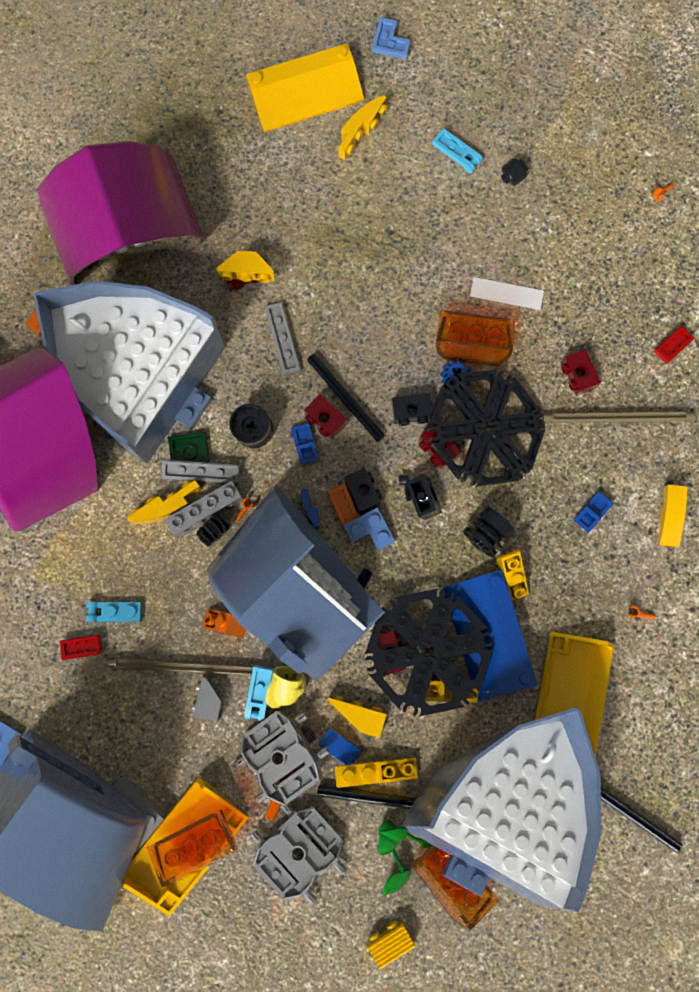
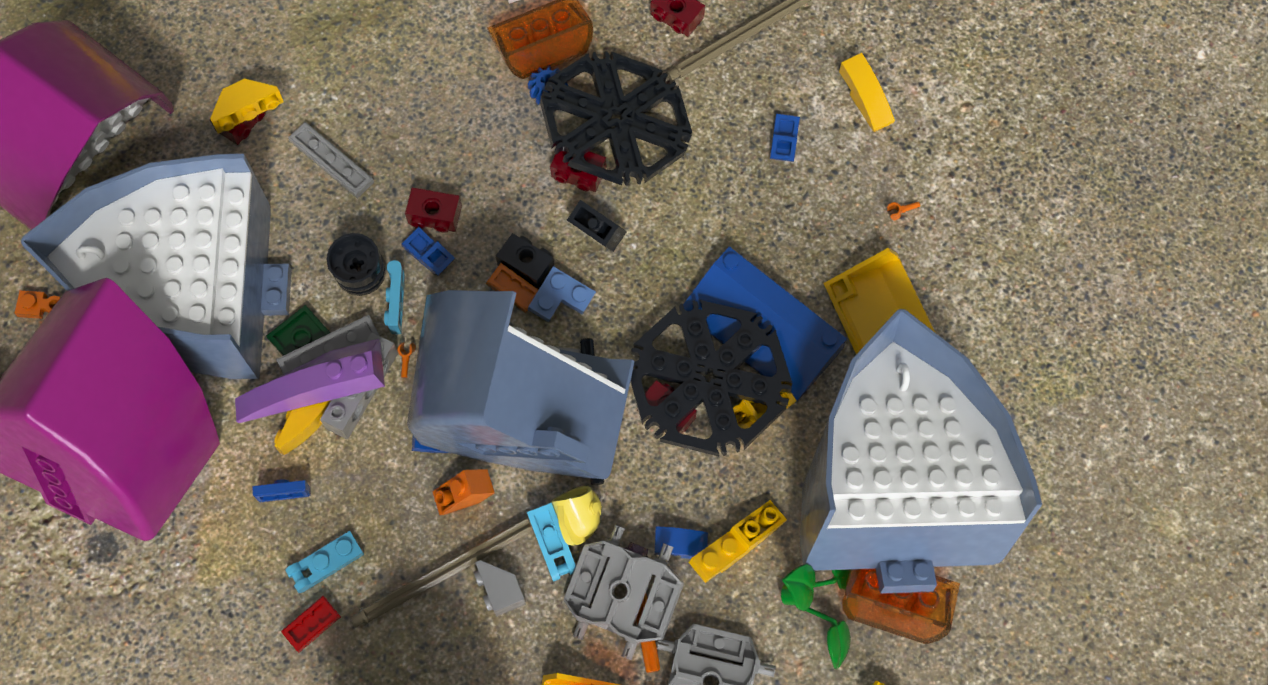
camera: 35 degrees left, 10 degrees down
(115, 547) = (281, 490): none -> blue plate
(180, 492) = (319, 380): none -> medium lavender wedge
(212, 530) = (384, 401): black gear -> none
(264, 462) = (395, 297): none -> medium azure plate
(346, 398) = (442, 178): black axle -> none
(364, 719) = (683, 495): yellow slope -> none
(365, 796) = (743, 577): black axle -> none
(402, 481) = (563, 225): black hand -> none
(420, 402) = (529, 136): black brick -> none
(491, 527) = (689, 217): black wheel -> none
(514, 574) = (740, 237): yellow slope -> none
(640, 821) = (1057, 413): black axle -> none

